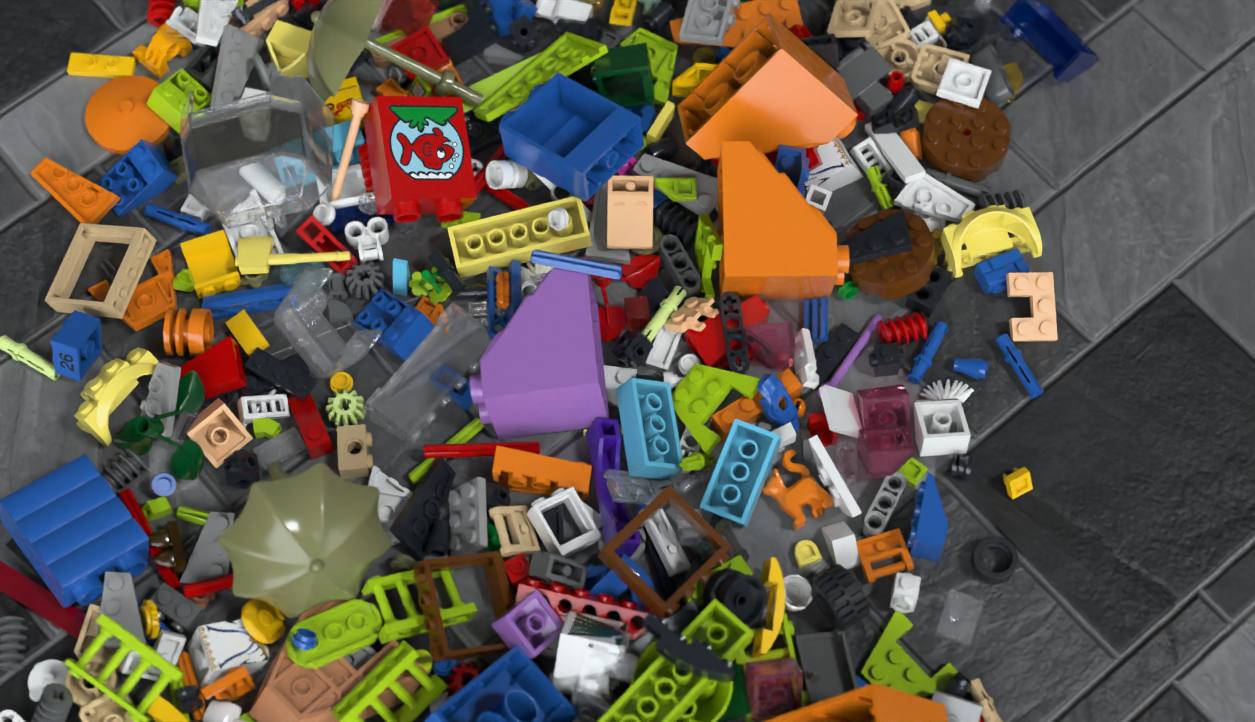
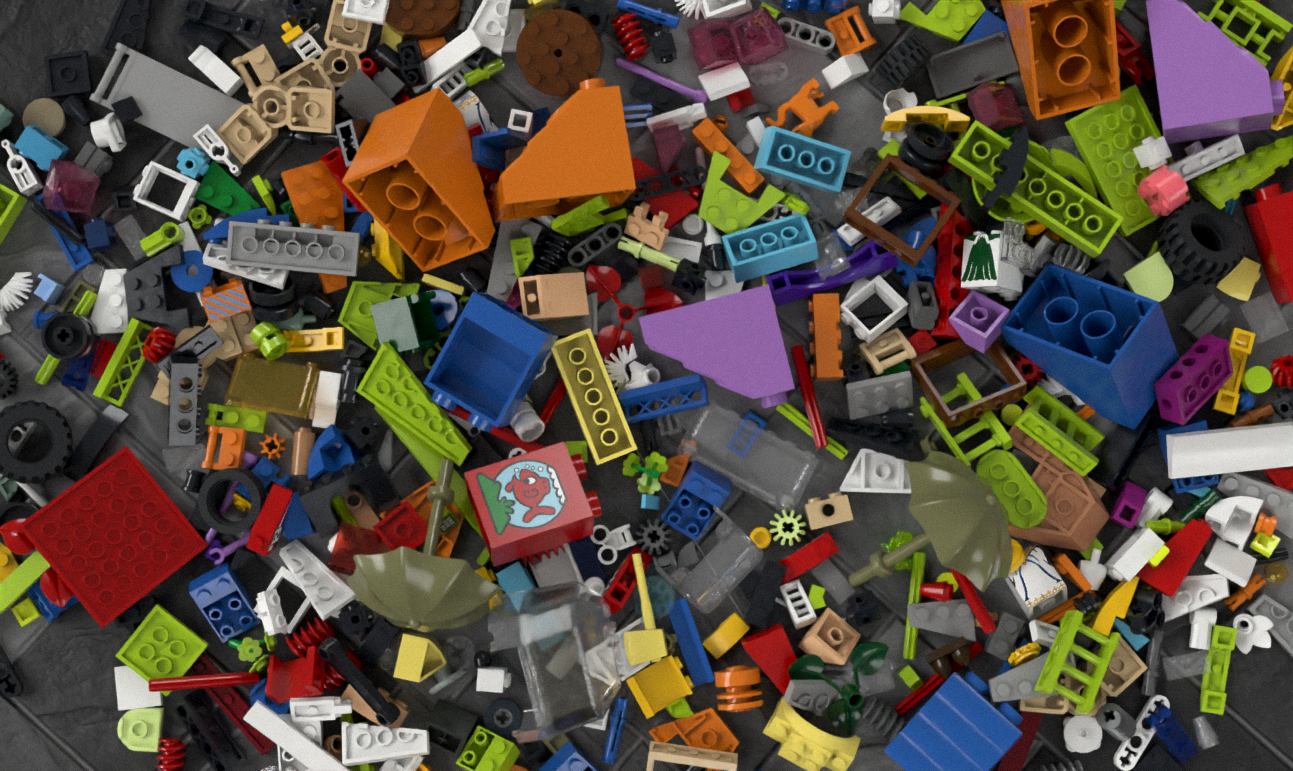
camera: 90 degrees left, 20 degrees up
(164, 484) = (891, 675): plate -> none
(234, 64) = (446, 711): light grey wing -> none
(304, 639) = (1029, 509): blue plate -> none
(359, 109) = (498, 567): light nougat piece -> none
(367, 203) = (577, 548): clear plate -> none
(447, 271) = (639, 458): black pin -> none
(503, 290) = (654, 401): orange axle -> none
(558, 219) = (581, 358): white plate -> none
(576, 264) = (650, 323): axle -> none
(772, 390) = (723, 142): blue piece -> none
(806, 553) = (857, 99): light yellow tile -> none
(831, 478) = (802, 75): white wing -> none
(880, 240) = (556, 59): black wing -> none

